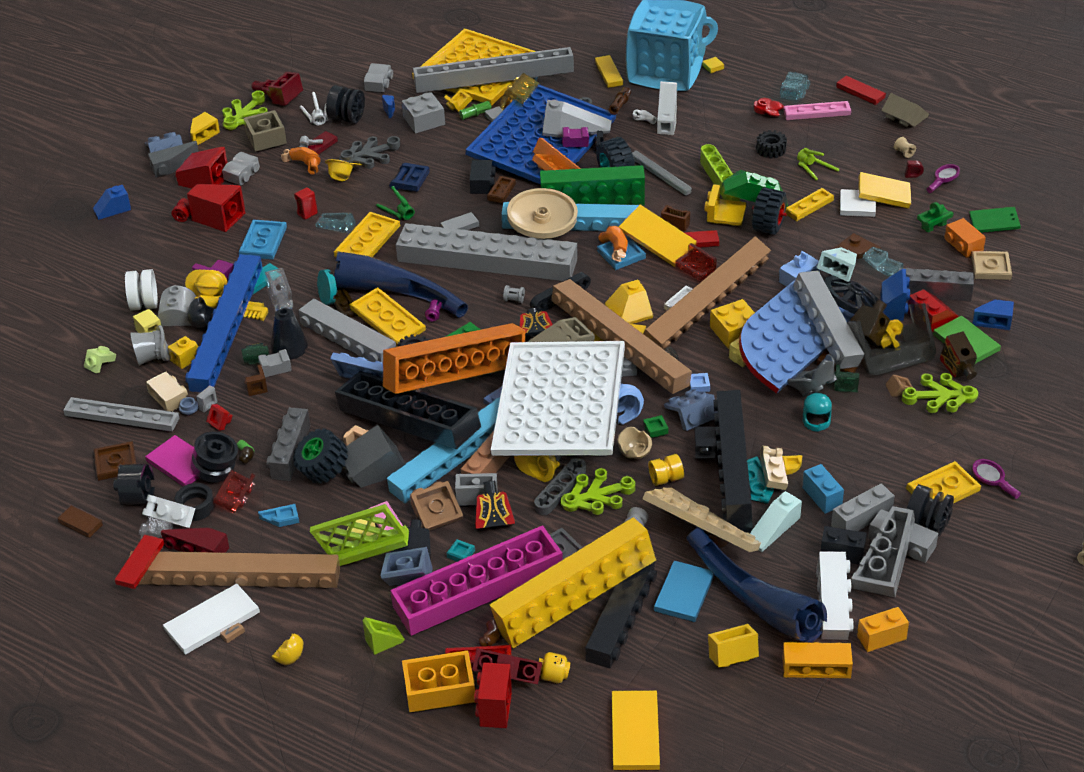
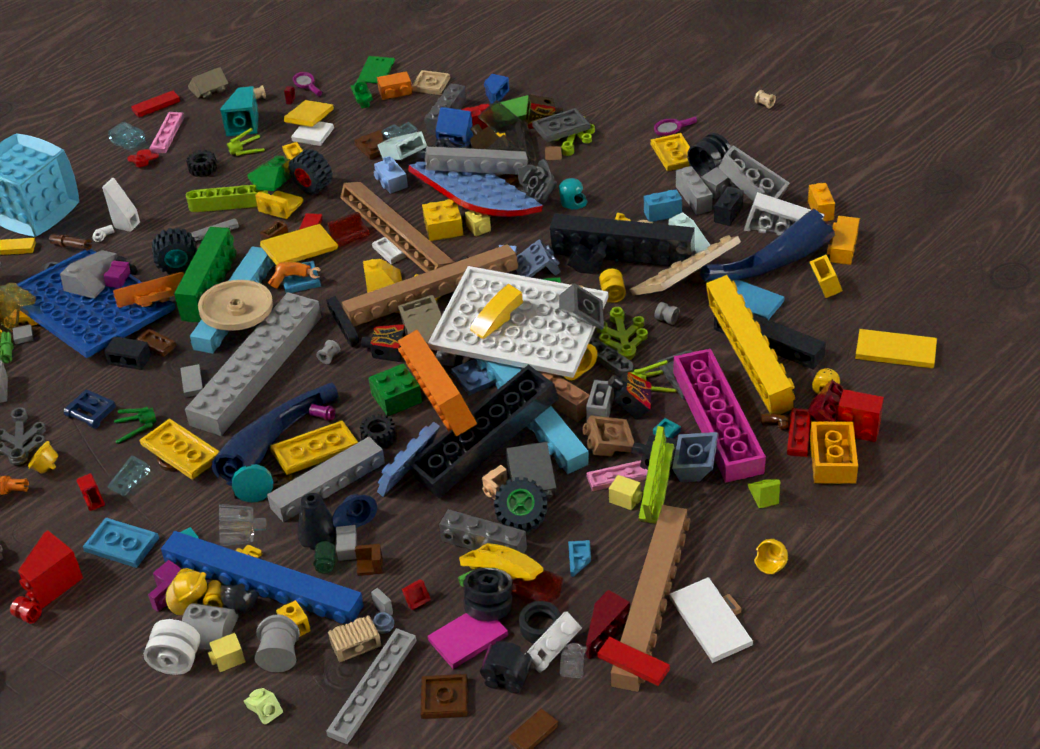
camera: 75 degrees left, 0 degrees up
(249, 458) = (503, 558): none -> yellow slope
(305, 356) = (355, 511): none -> dark blue piece
(528, 517) = (641, 373): none -> lime plant
(554, 373) = (497, 311): none -> yellow slope
(569, 431) = (582, 305): none -> dark grey slope
(856, 143) = (240, 112): none -> teal slope
(941, 378) = (561, 125): none -> dark grey tile

